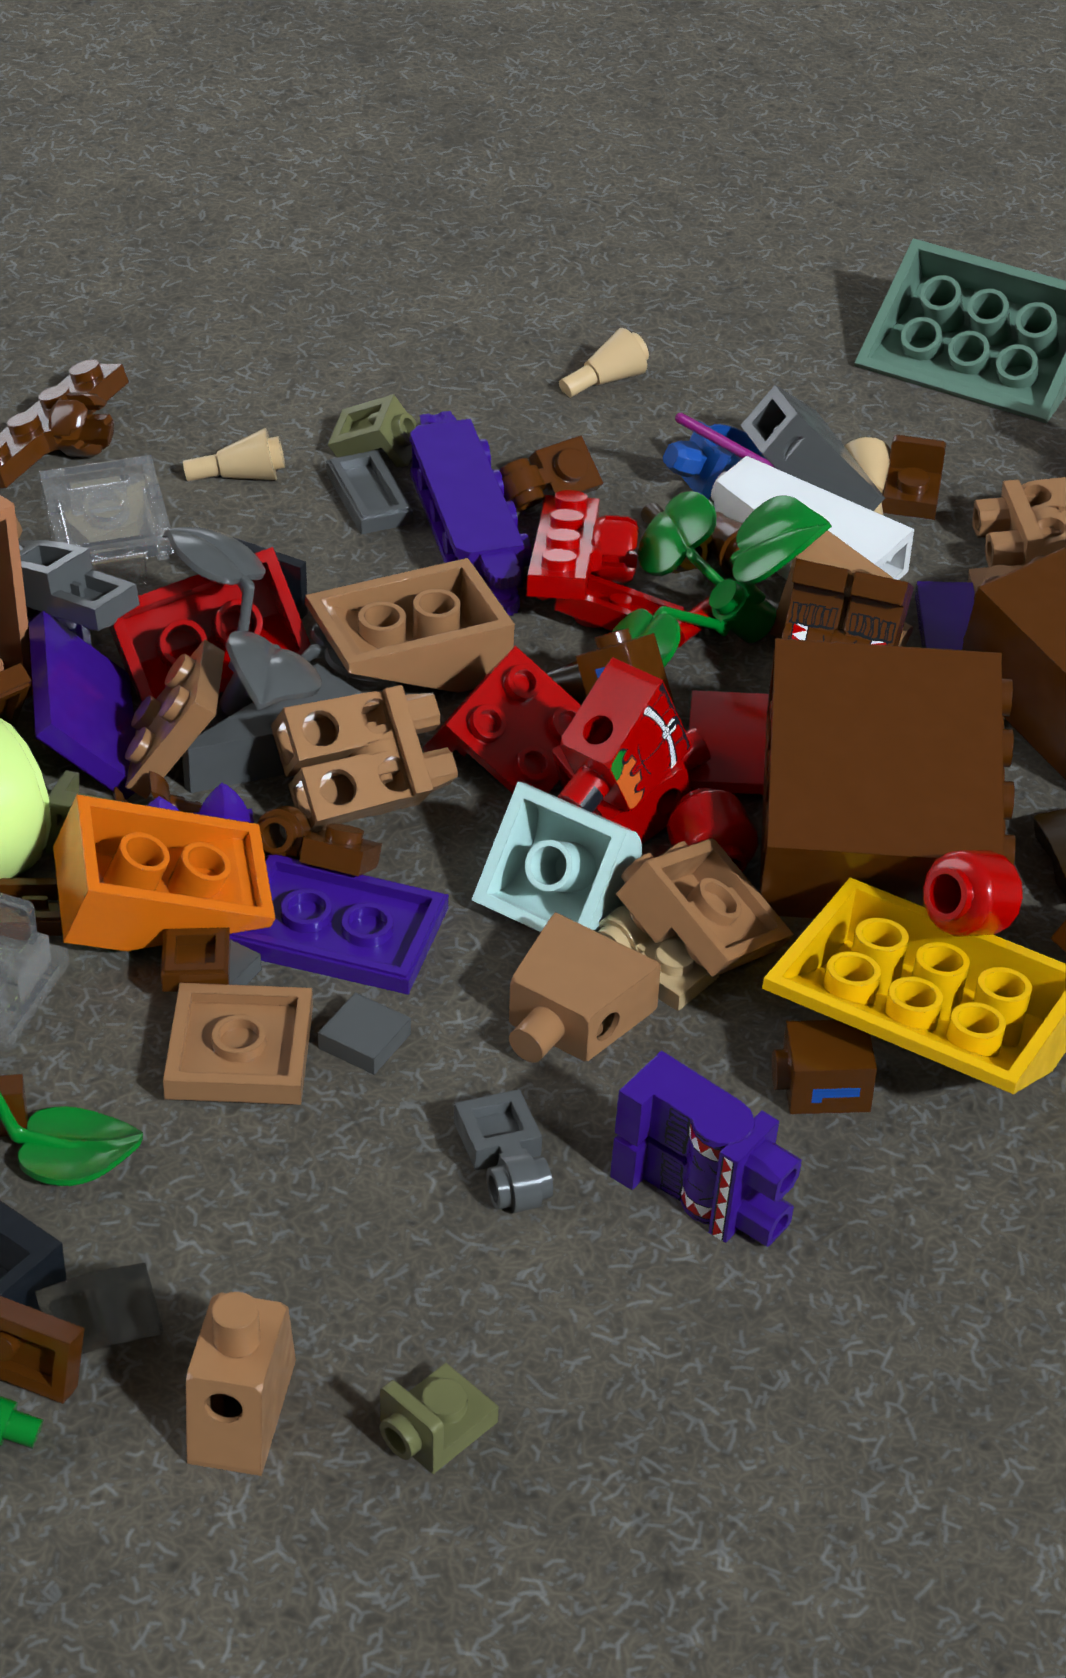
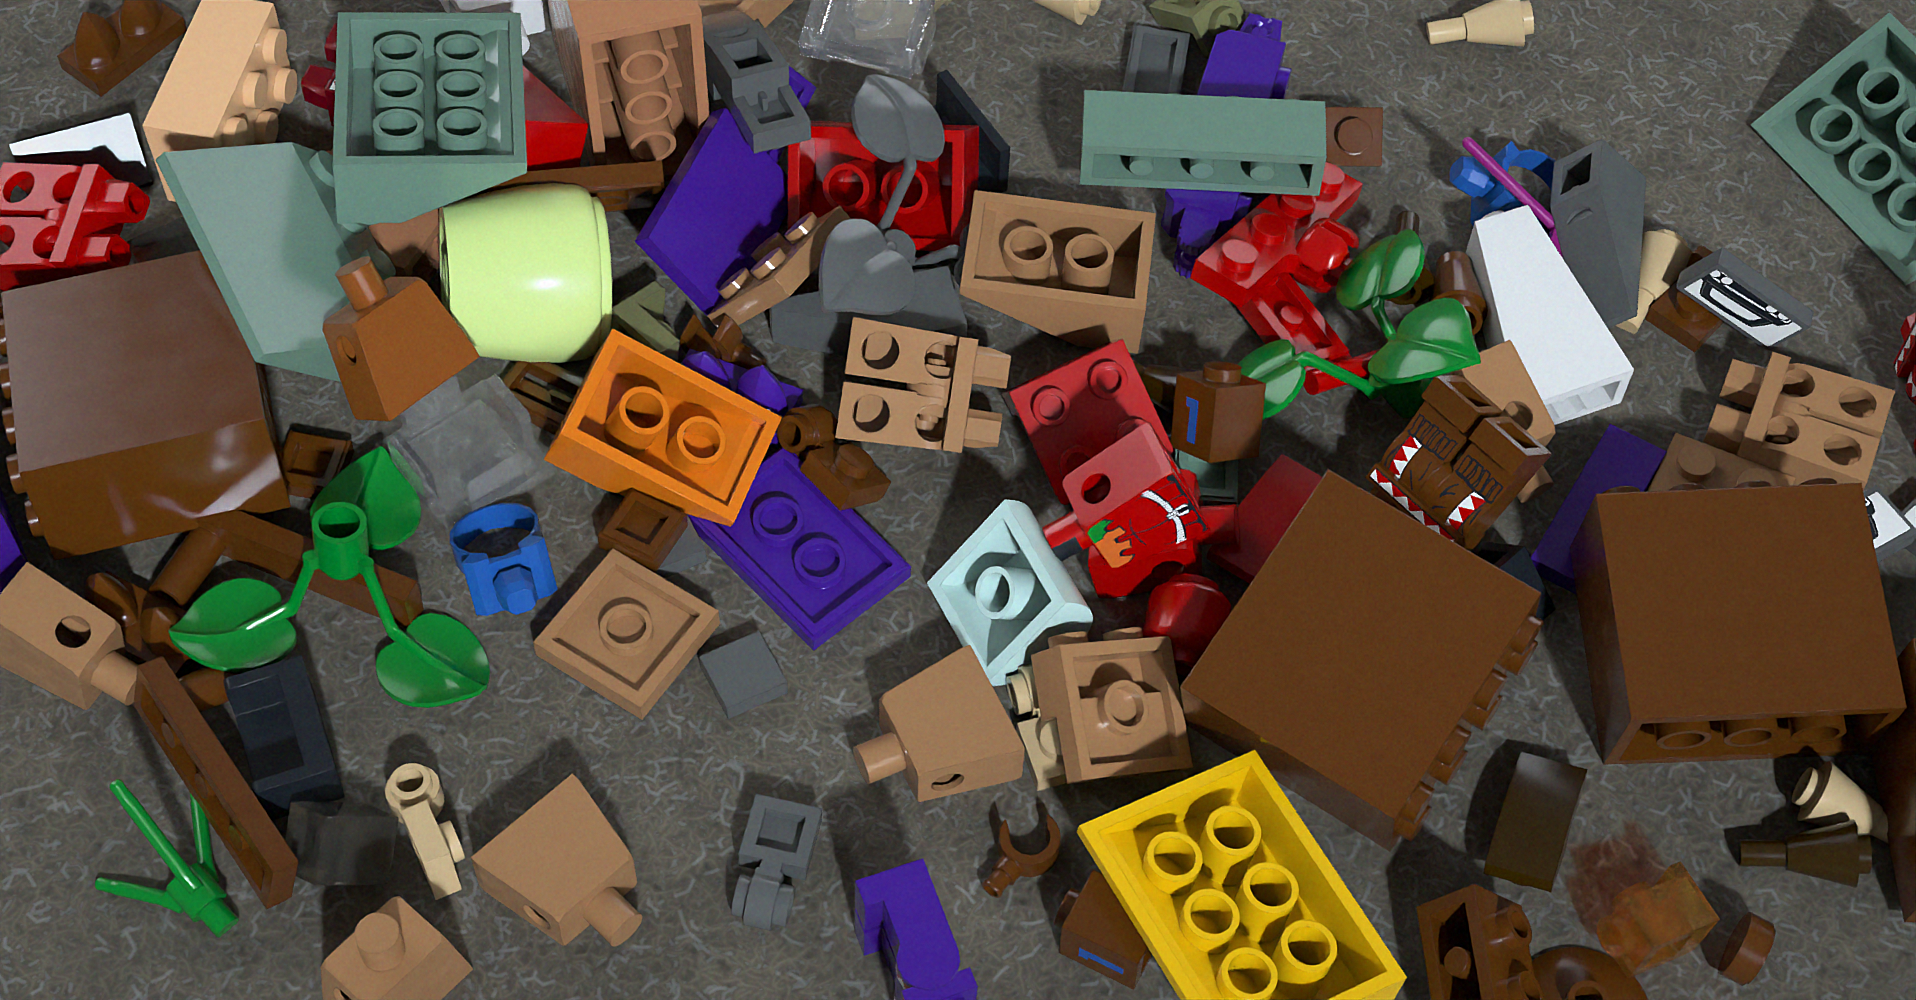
camera: 30 degrees right, 15 degrees up
(89, 1051) = (509, 580): none -> blue piece
(186, 1268) = (437, 847): none -> tan plate
(327, 1235) = (562, 868): none -> medium nougat torso
(466, 497) = (1203, 142): none -> sand green brick
(713, 1060) = (1016, 864): none -> reddish brown piece
(953, 457) = (1744, 299): none -> tile
(972, 893) = (1338, 836): red head -> none

